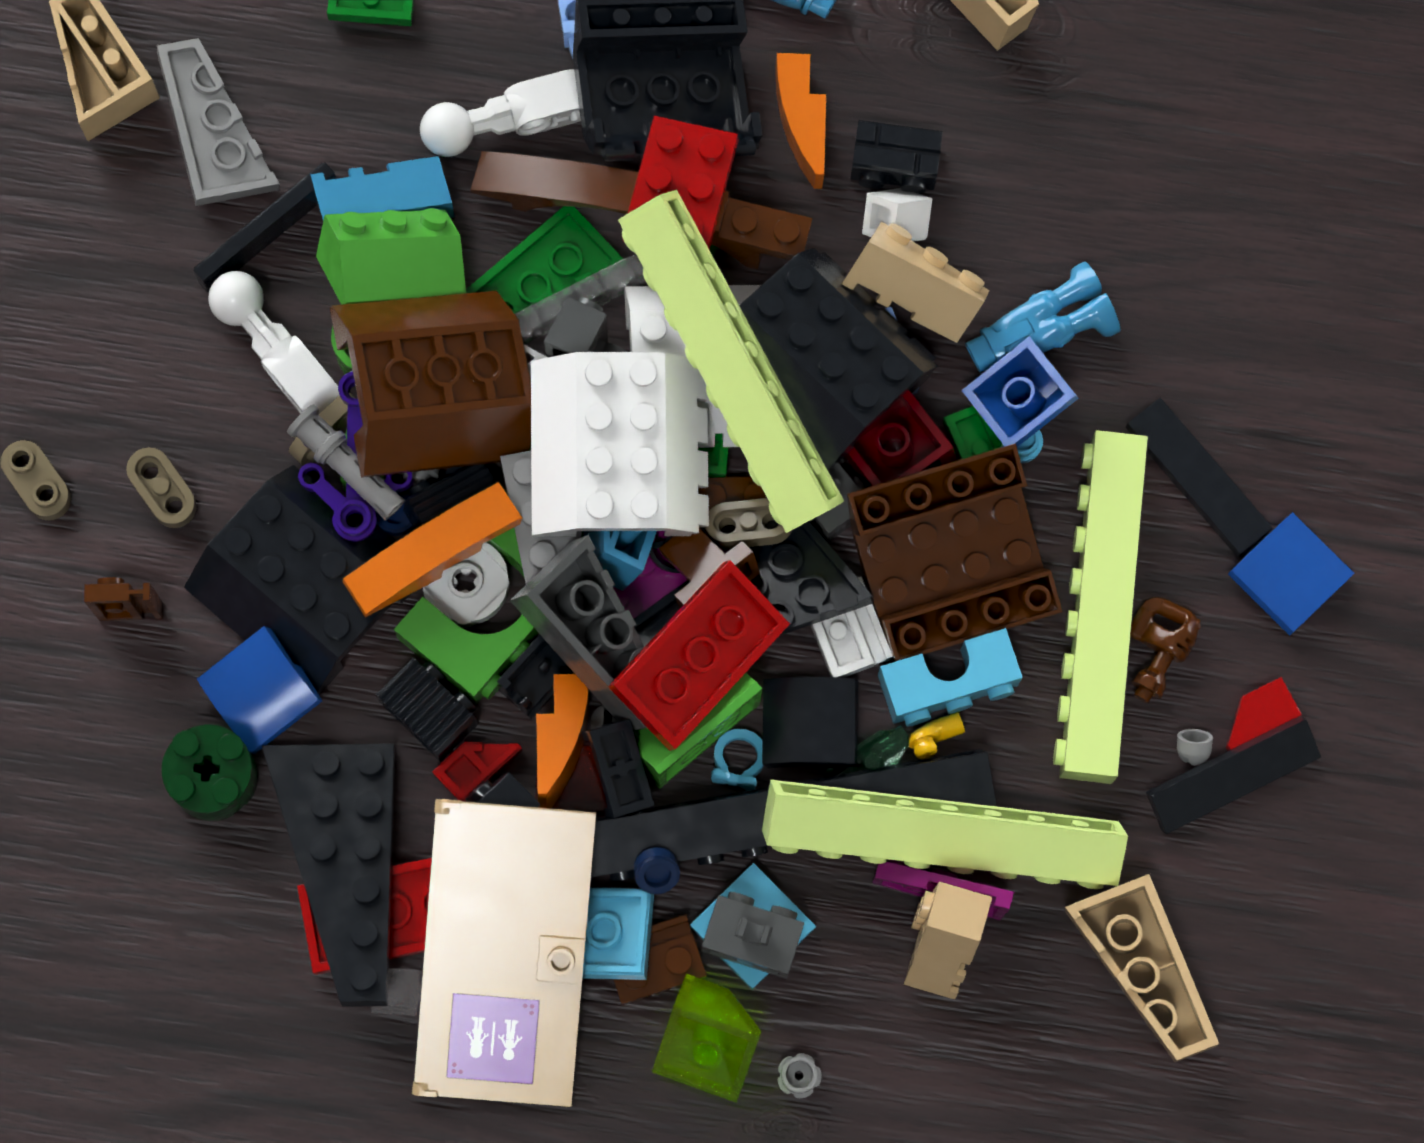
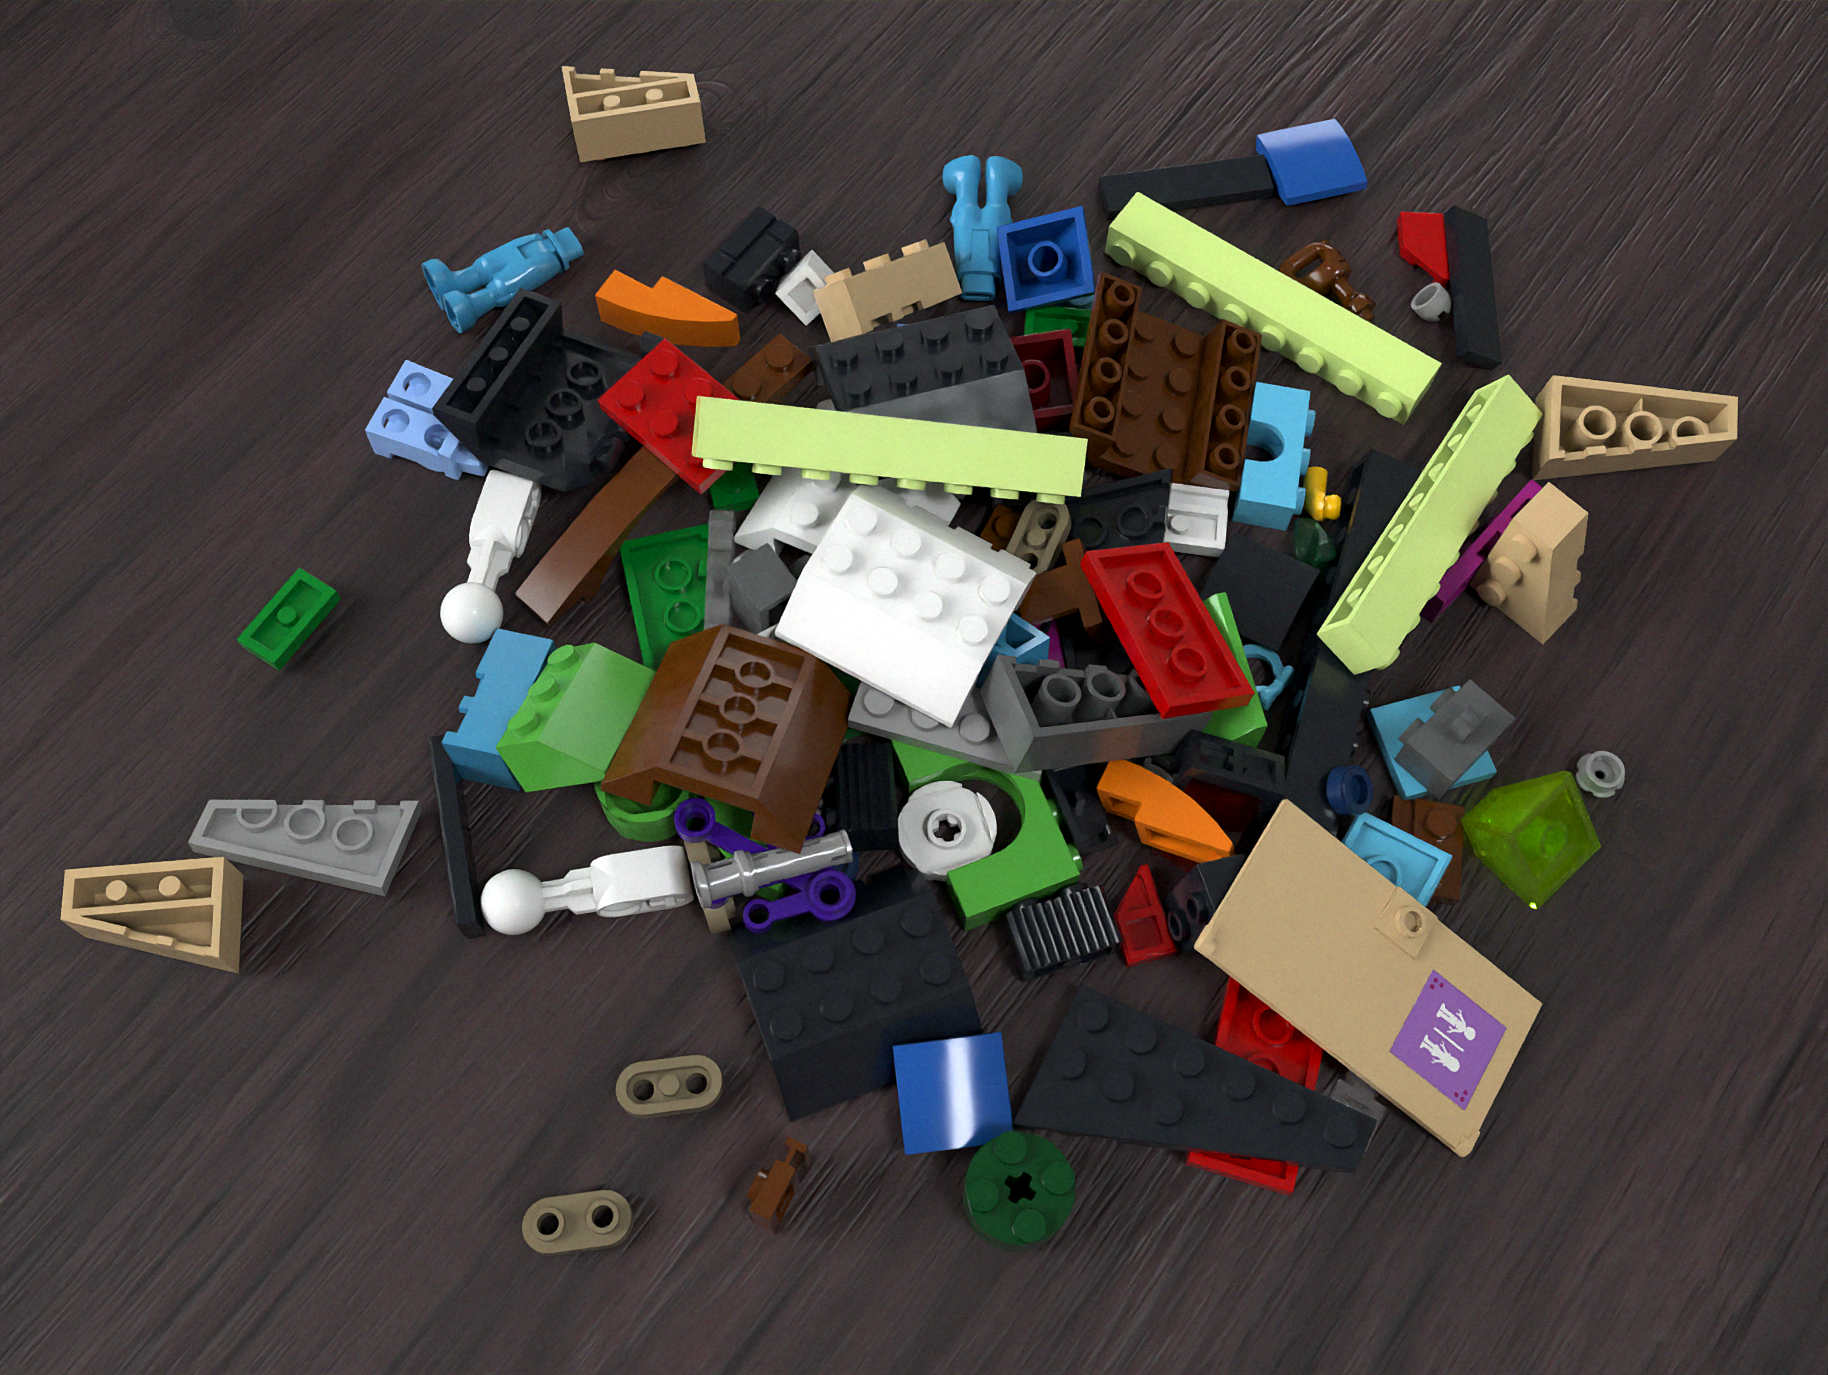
camera: 60 degrees left, 10 degrees down
(431, 549) = (912, 830): orange slope -> none

